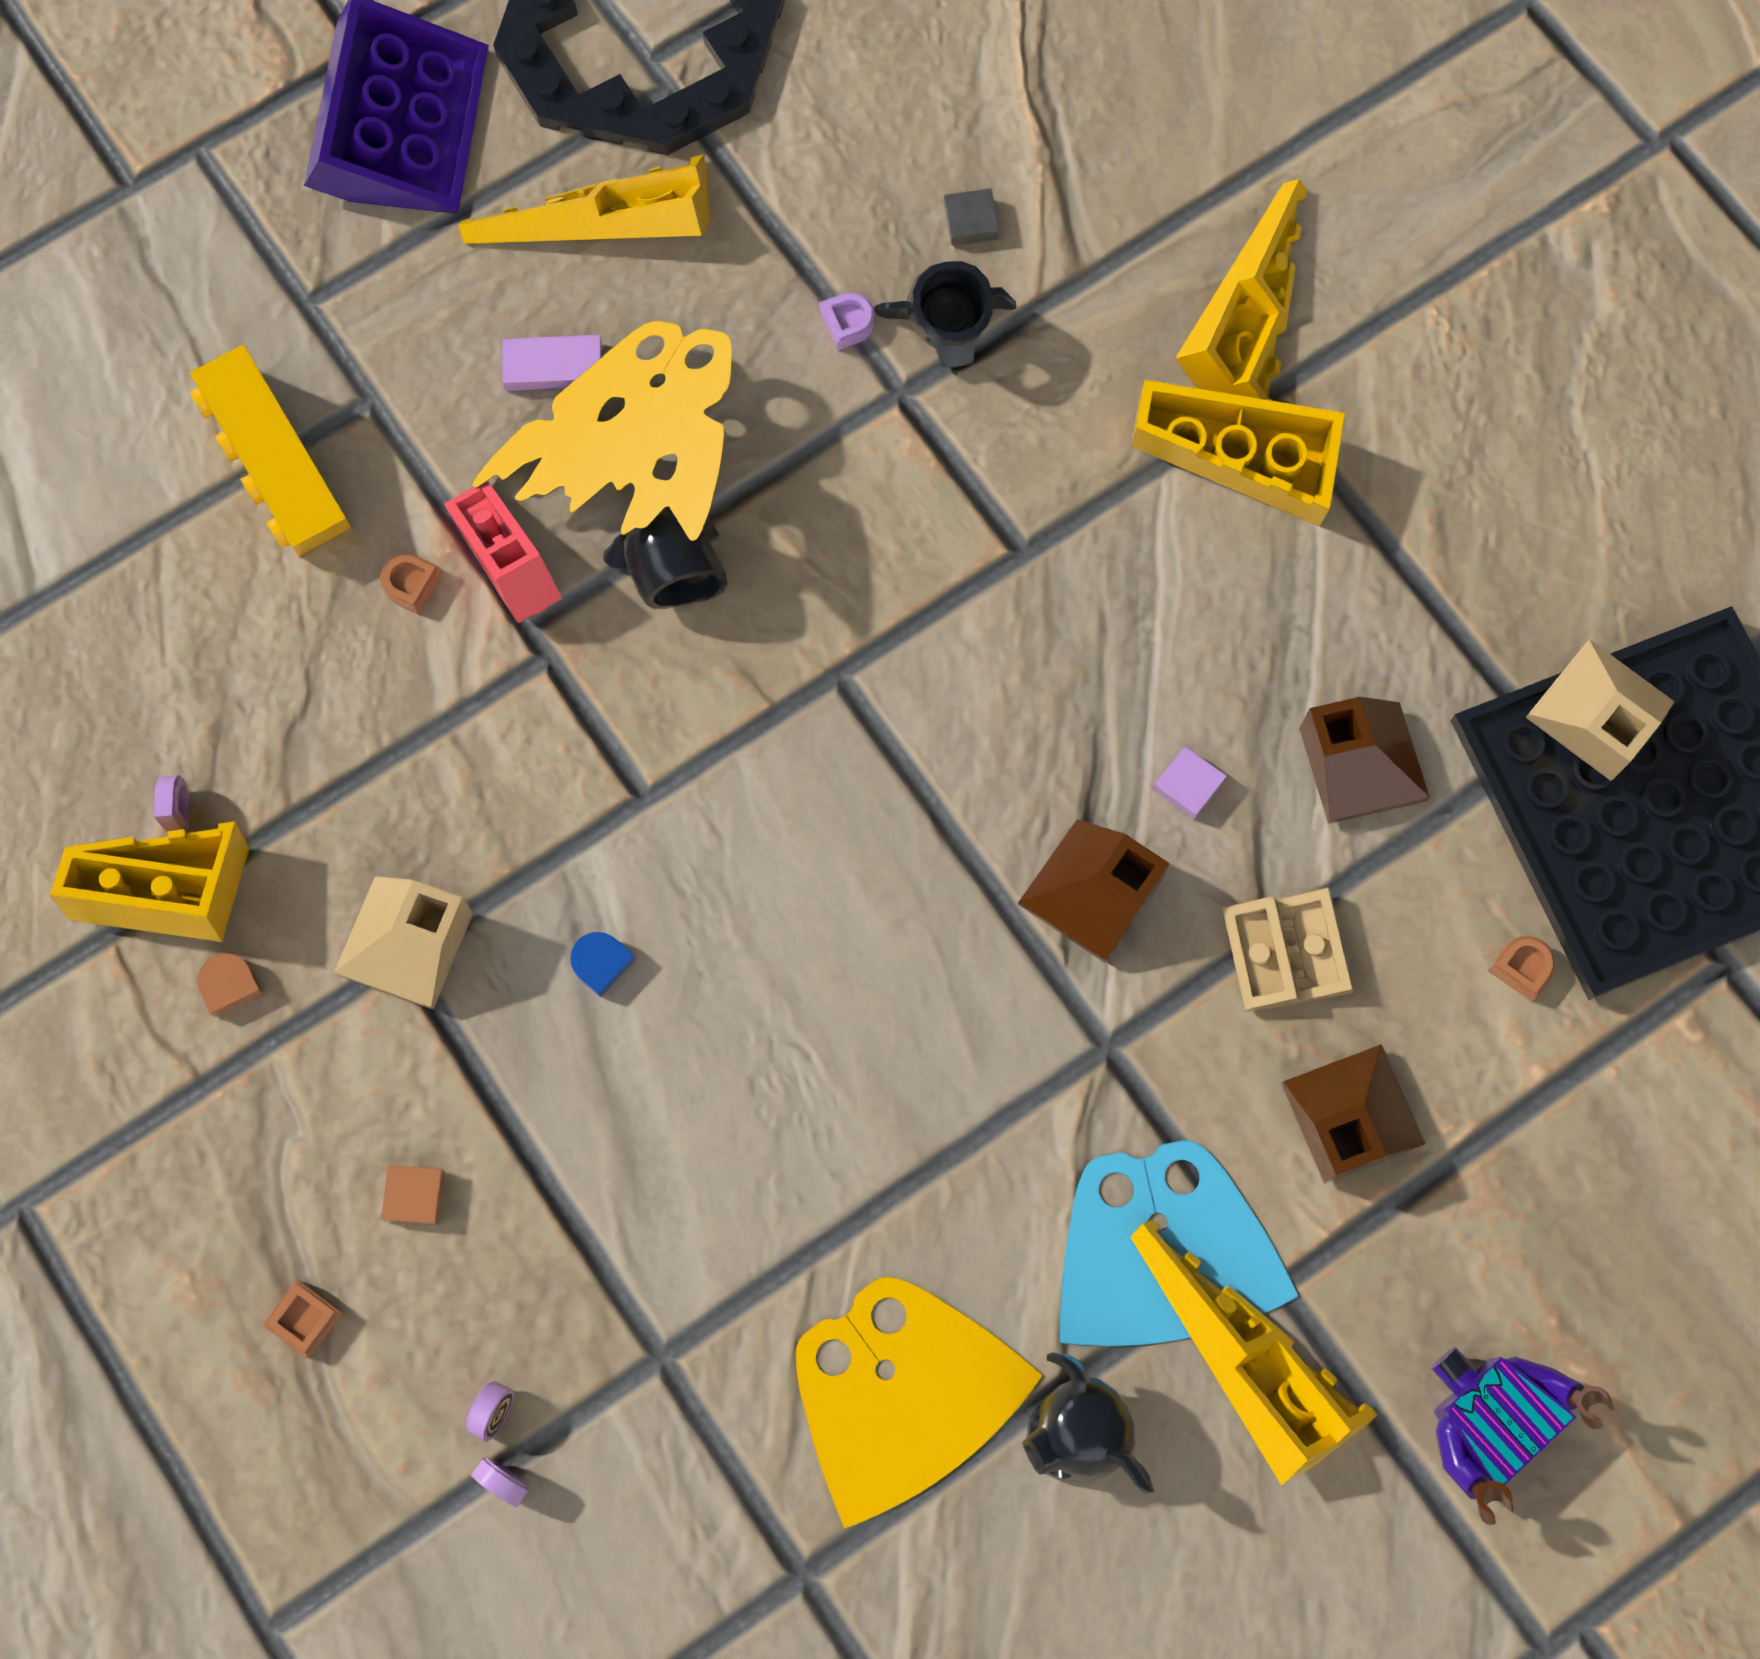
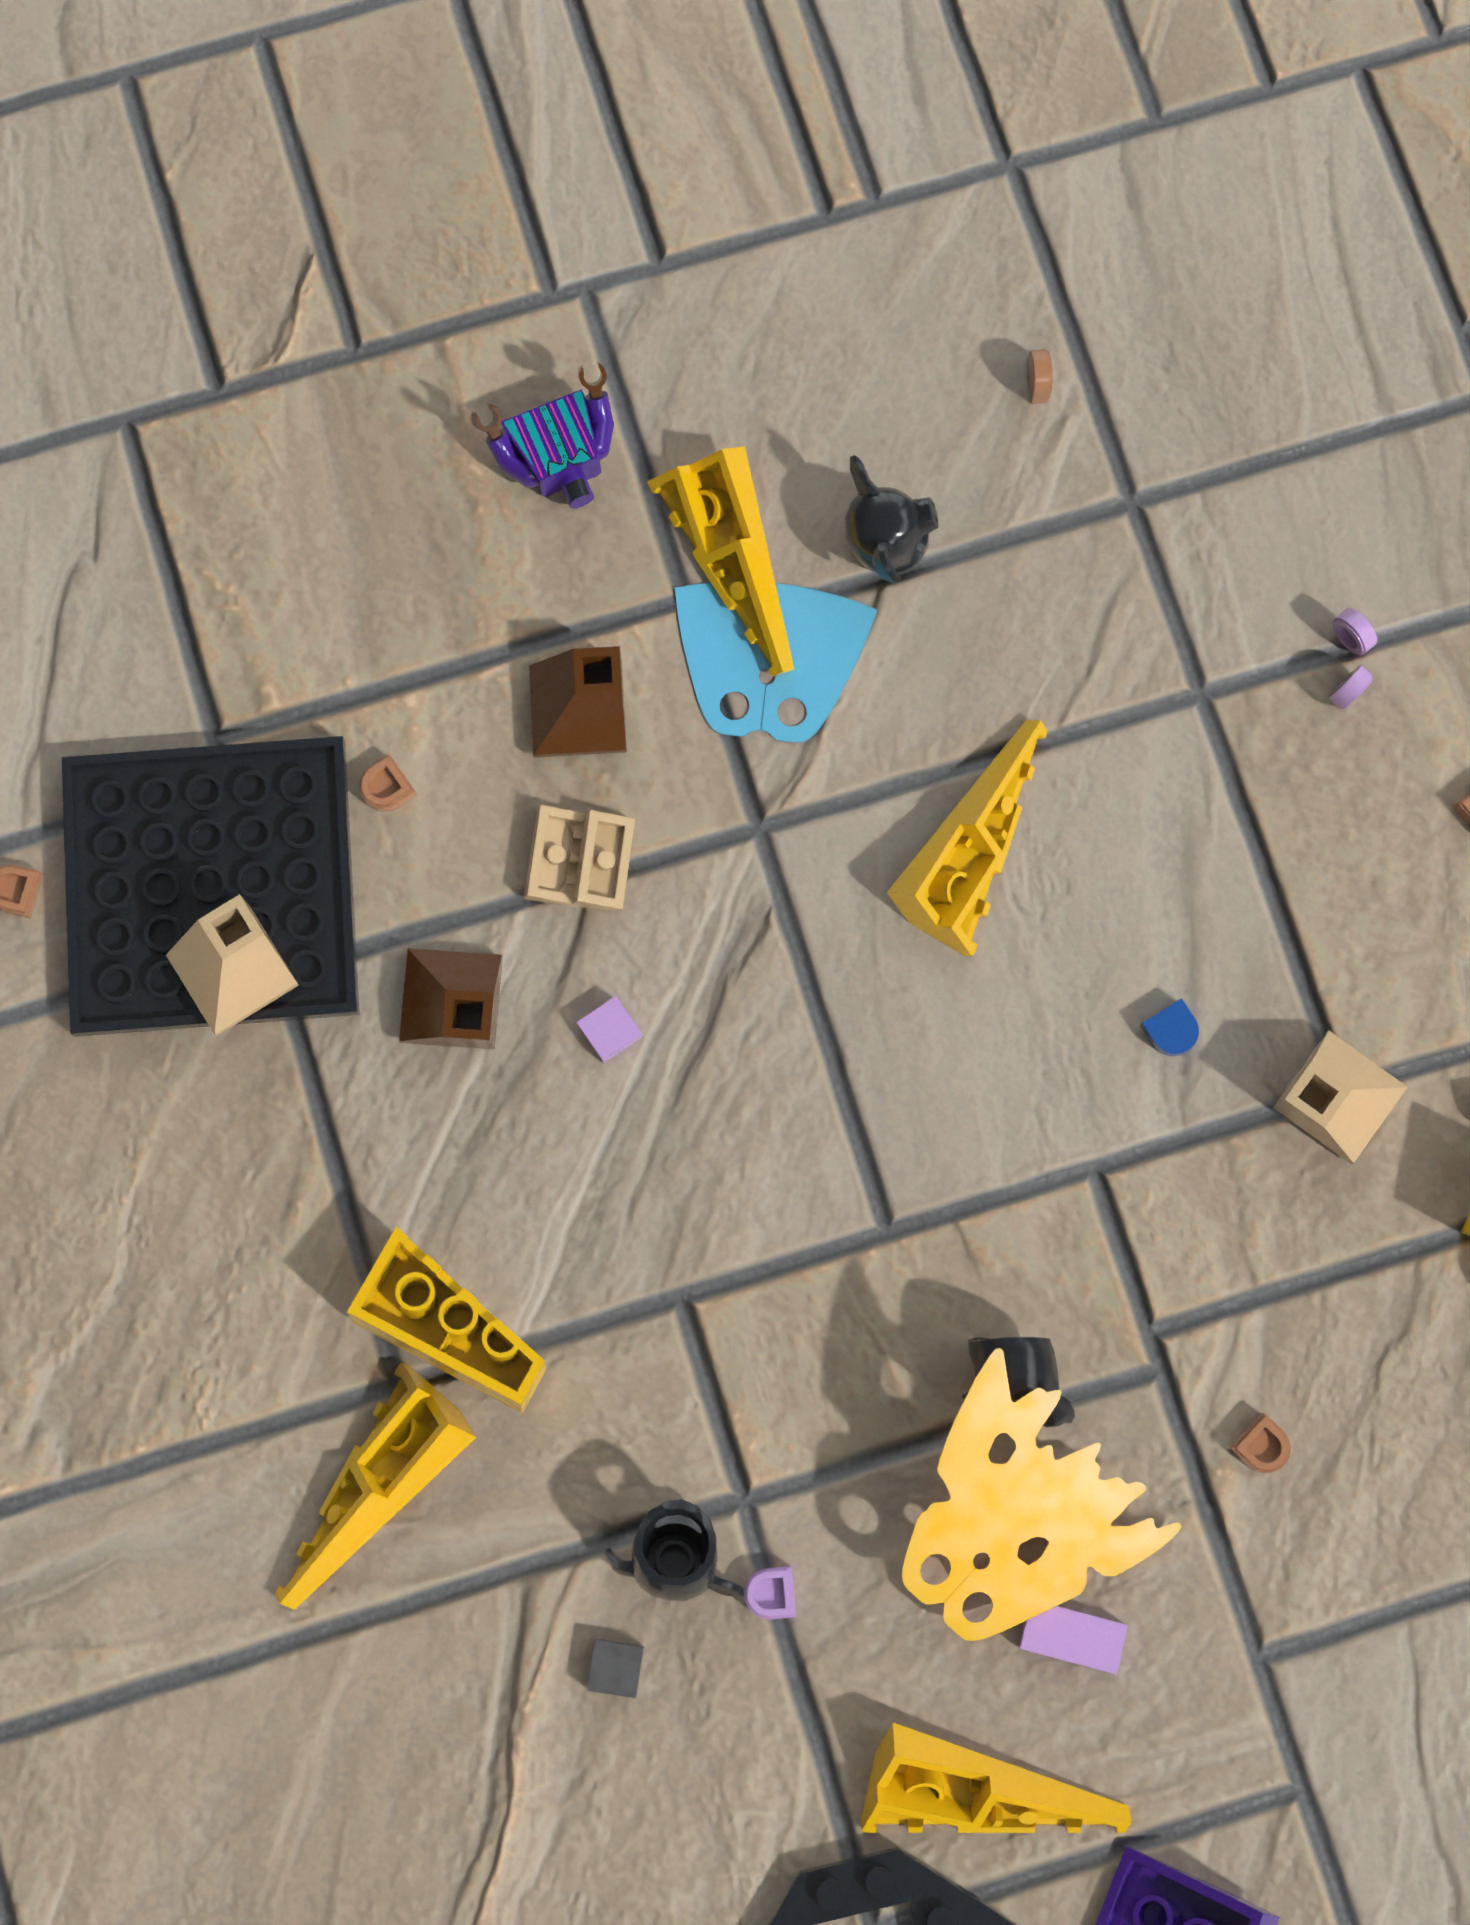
camera: 165 degrees left, 5 degrees up
(269, 450) = (1373, 1611): yellow wedge -> none
(413, 1195) = (1377, 879): nougat tile -> none
(504, 551) = (1169, 1443): coral slope -> none
(880, 1063) = (952, 873): none -> yellow wedge
(904, 1433) = (1021, 579): yellow piece -> none
(1094, 887) = (727, 957): reddish brown slope -> none

